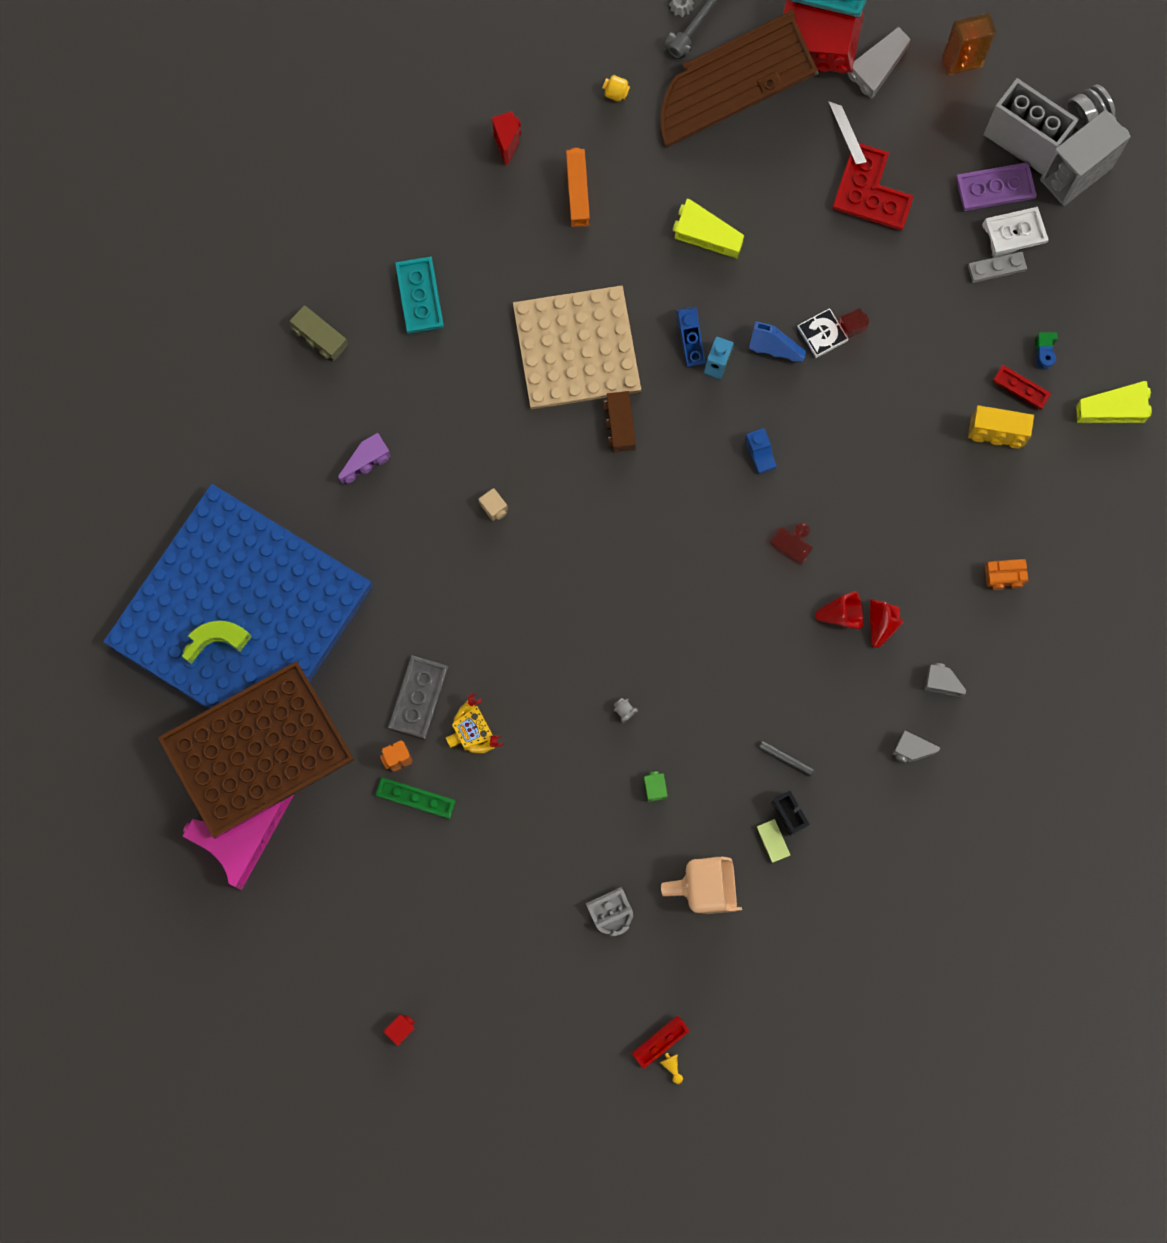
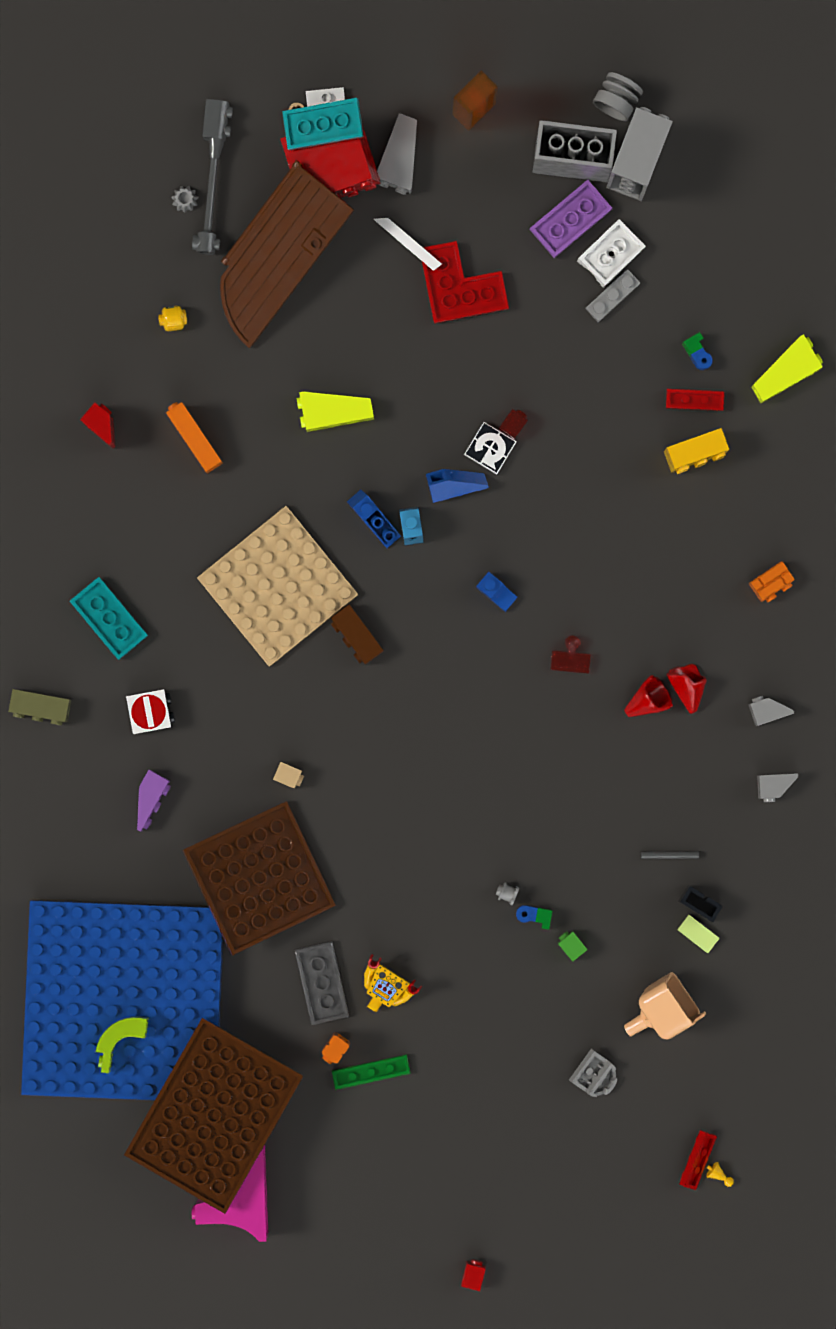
camera: 30 degrees left, 10 degrees up
(408, 388) = (150, 711): none -> piece
(417, 574) = (258, 878): none -> reddish brown plate
(639, 742) = (535, 914): none -> leg

